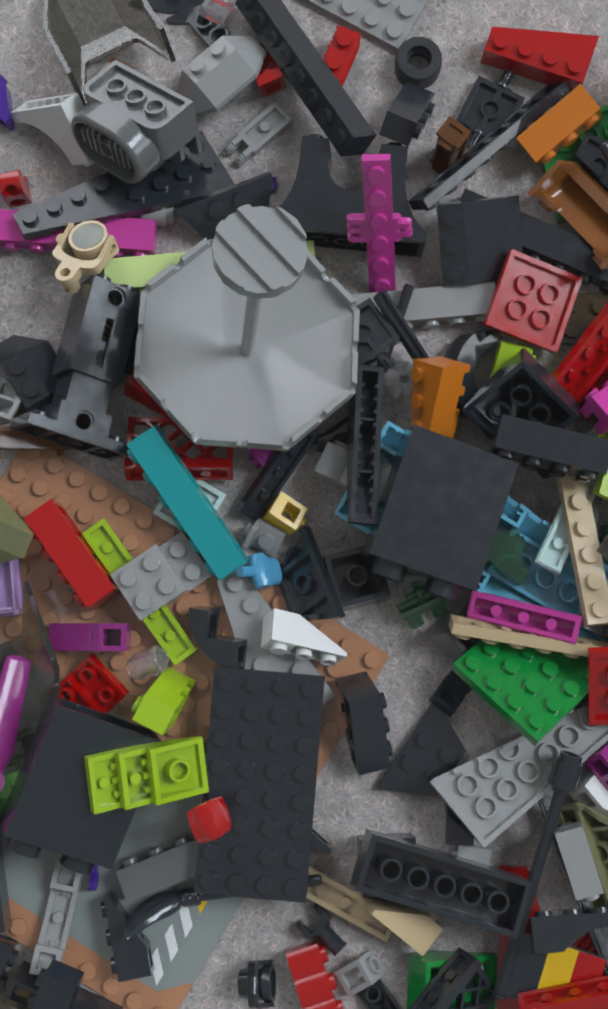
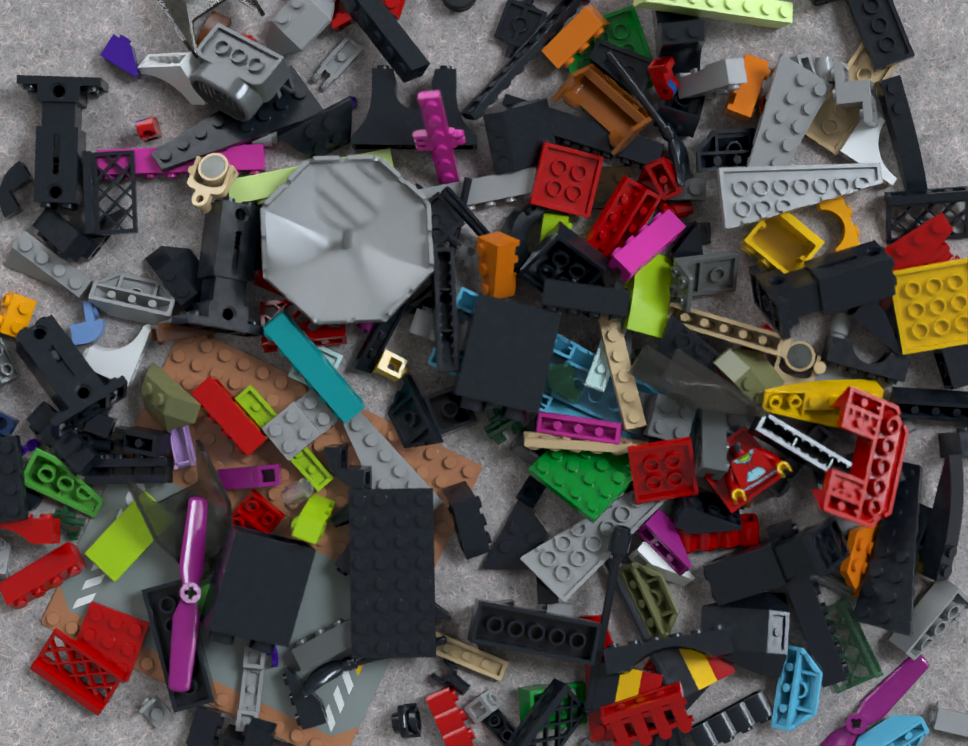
camera: 10 degrees left, 5 degrees up
(146, 774) = (307, 574): lime slope -> none
(201, 702) = (341, 517): none -> black cone
(209, 820) = (357, 602): red piece -> none
(262, 570) = (377, 411): dark azure piece -> none
(264, 537) = (375, 385): light grey bracket -> none
(294, 635) = (406, 459): white slope -> none
(408, 114) = (454, 39): black brick -> none
(408, 923) = (513, 663): tan slope -> none
(450, 144) = (488, 63): reddish brown container -> none
(579, 861) = (636, 605): light grey brick -> none

